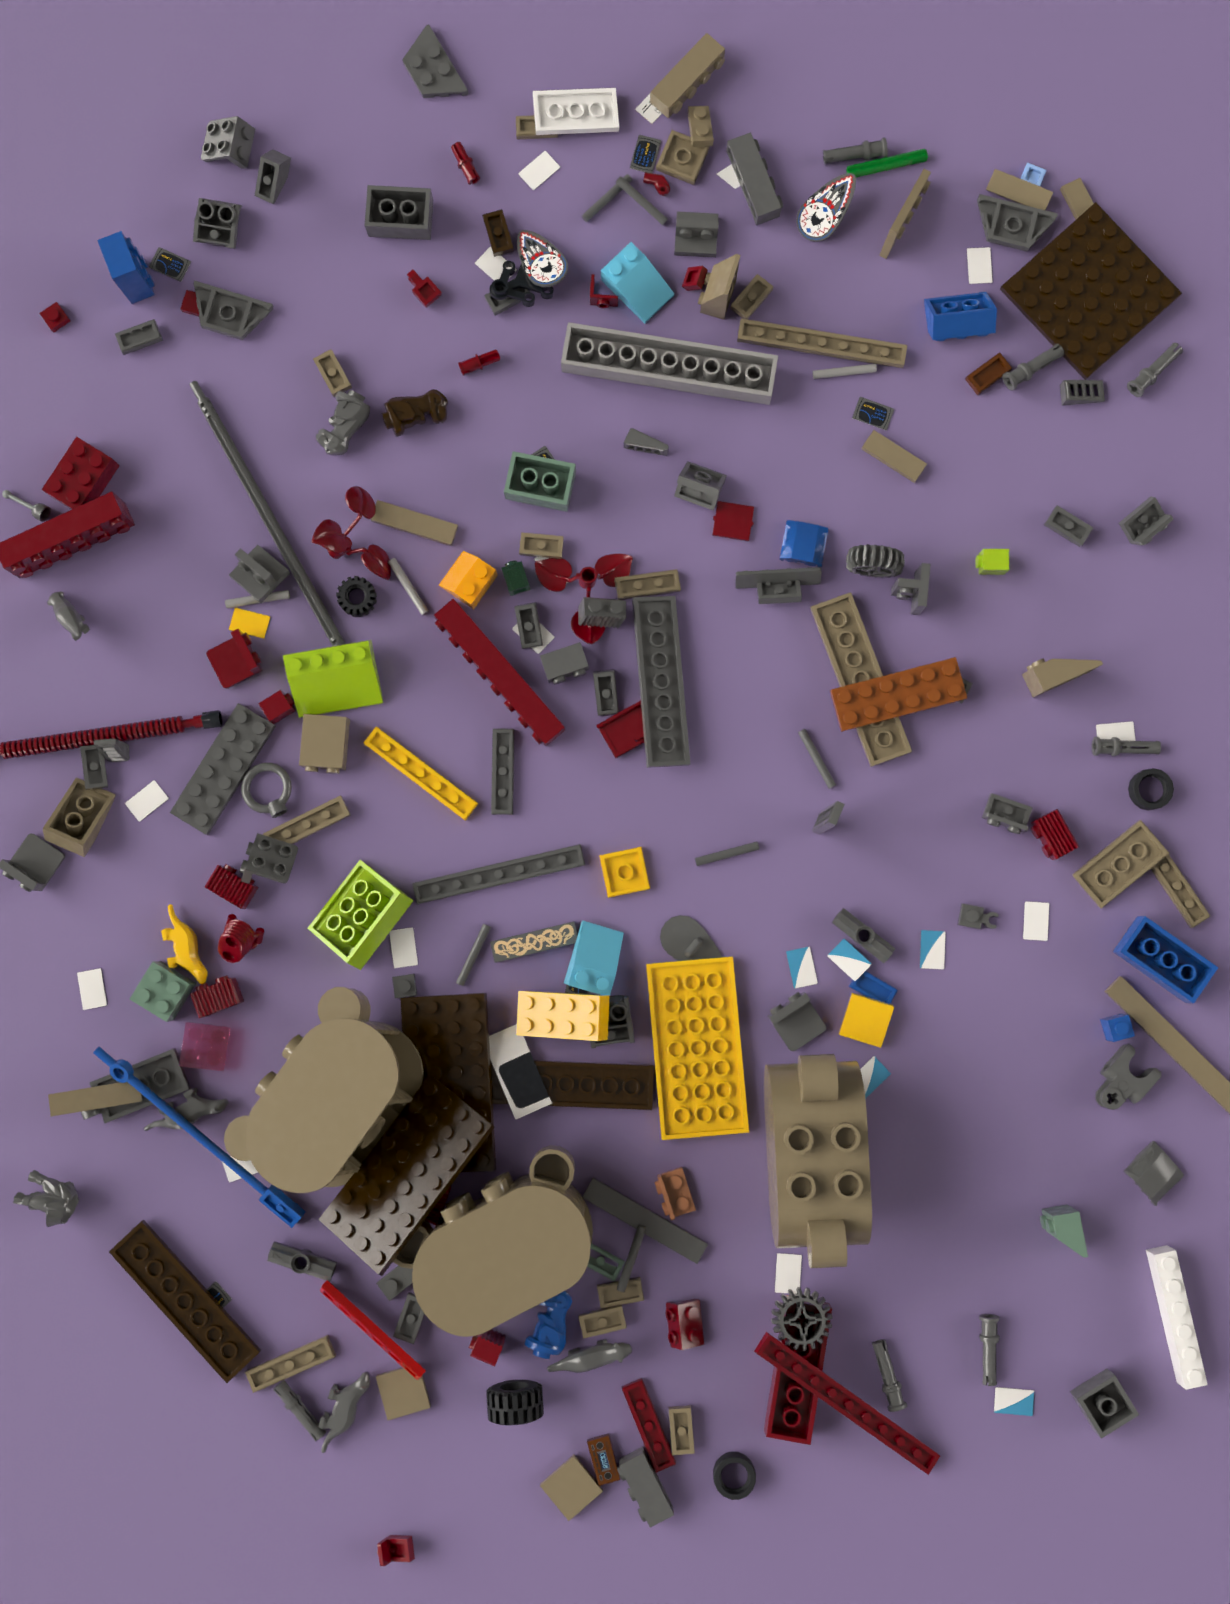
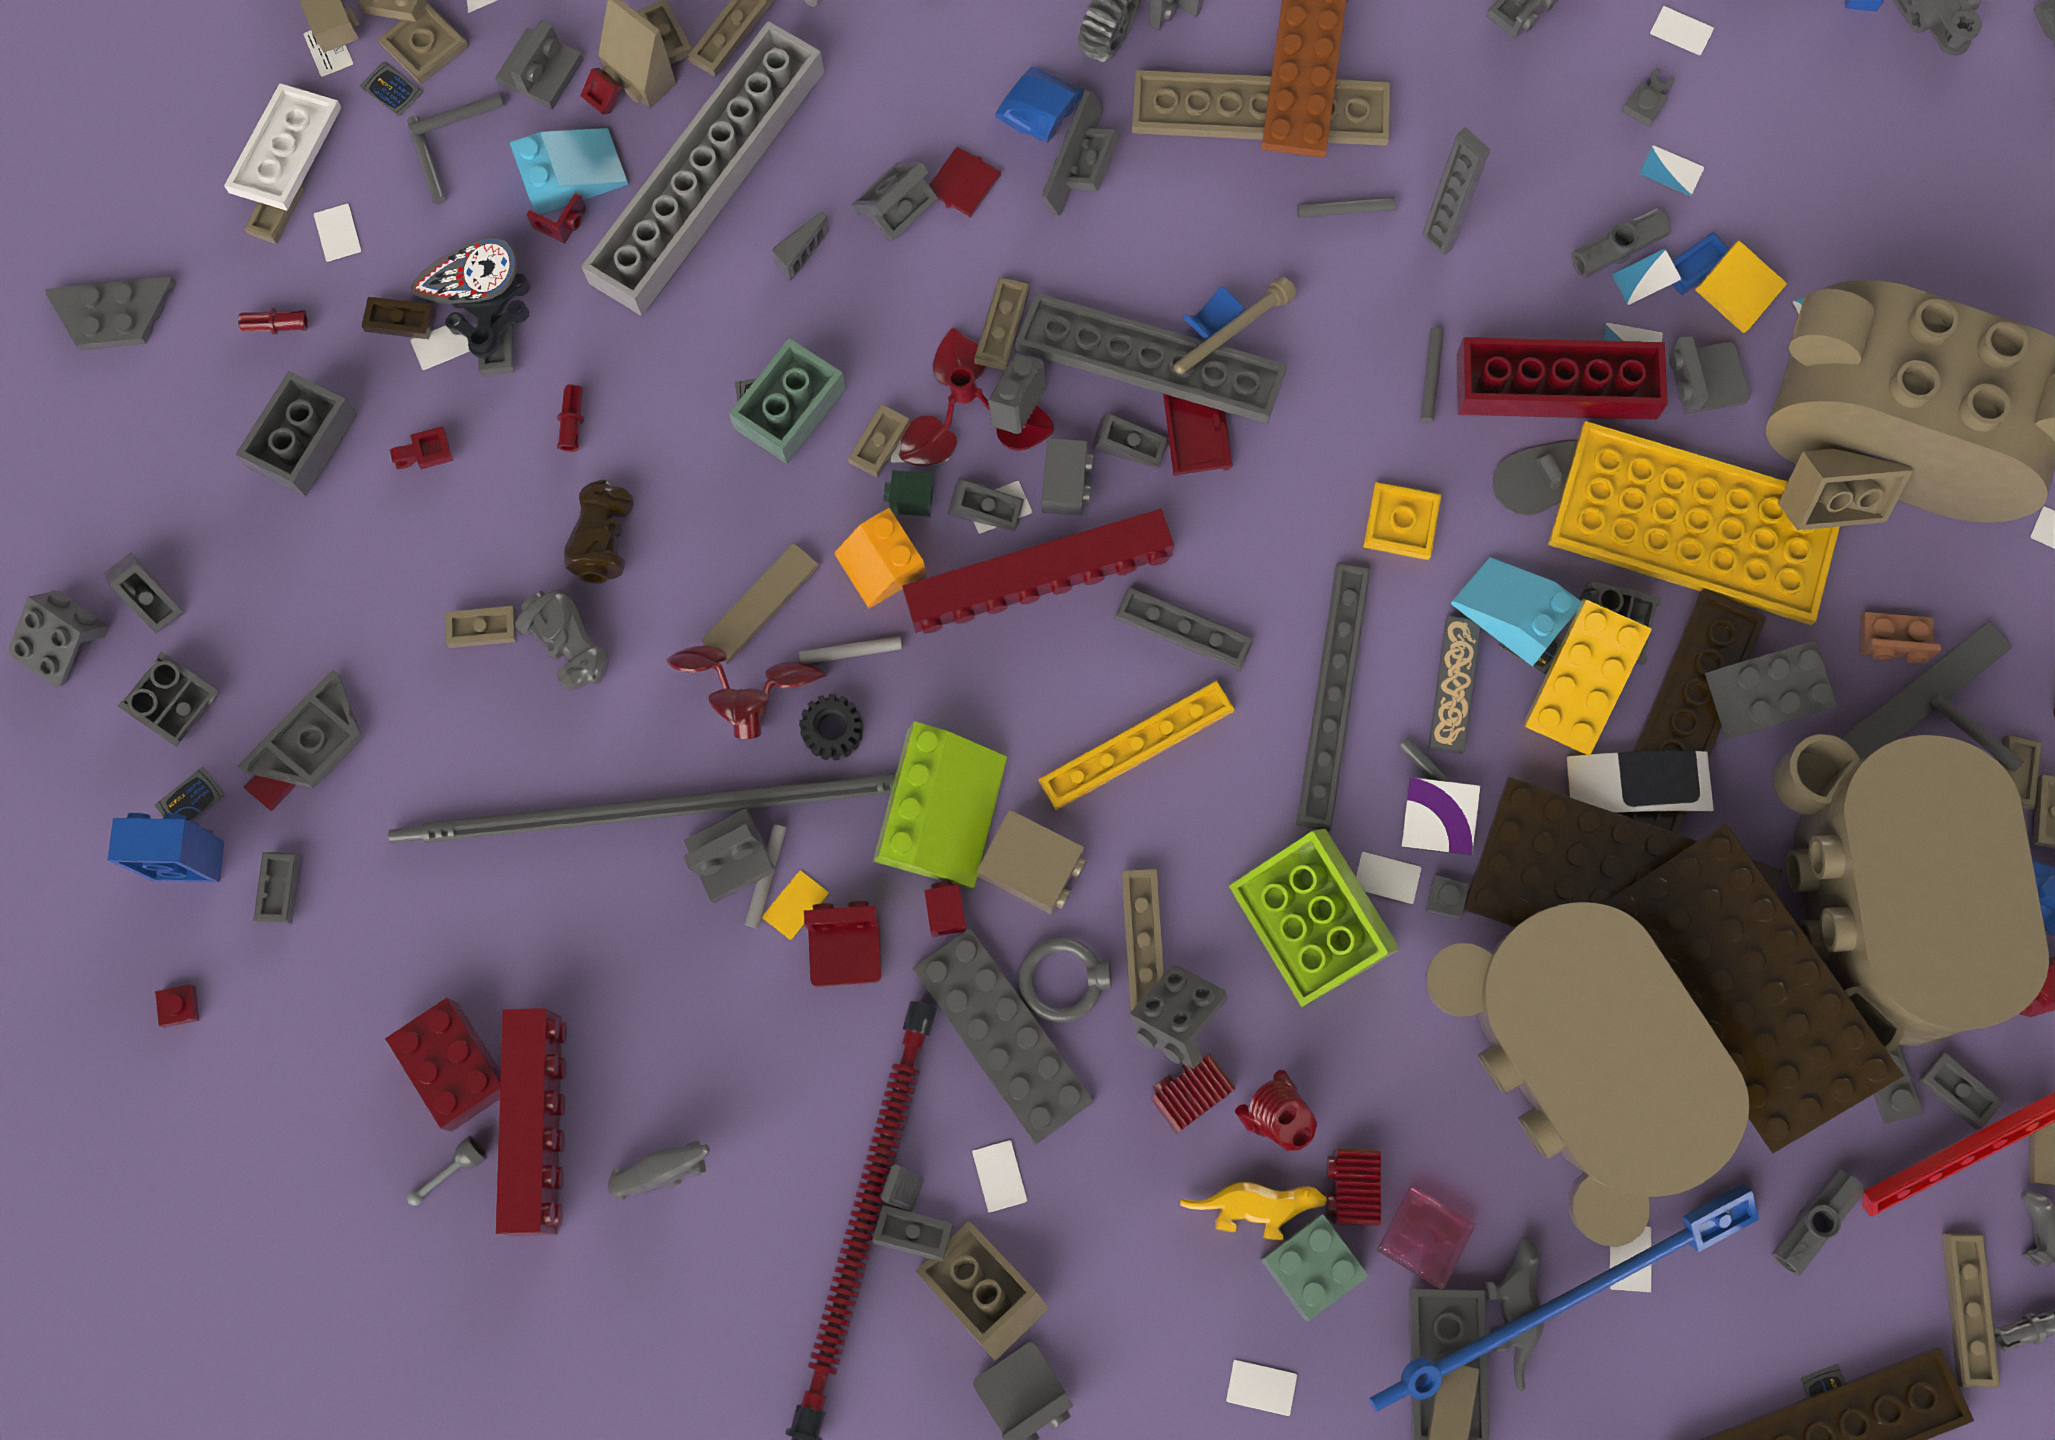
camera: 70 degrees left, 10 degrees down
(449, 963) = (1440, 816): none -> tile
(602, 1127) = (1771, 689): none -> dark grey brick
(658, 181) = (439, 85): dark red arm -> none
(705, 708) = (1216, 313): none -> blue bracket
(739, 741) = (1278, 294): none -> dark tan piece
(743, 1124) = (1842, 489): none -> dark tan slope
(753, 932) = (1561, 378): none -> dark red brick

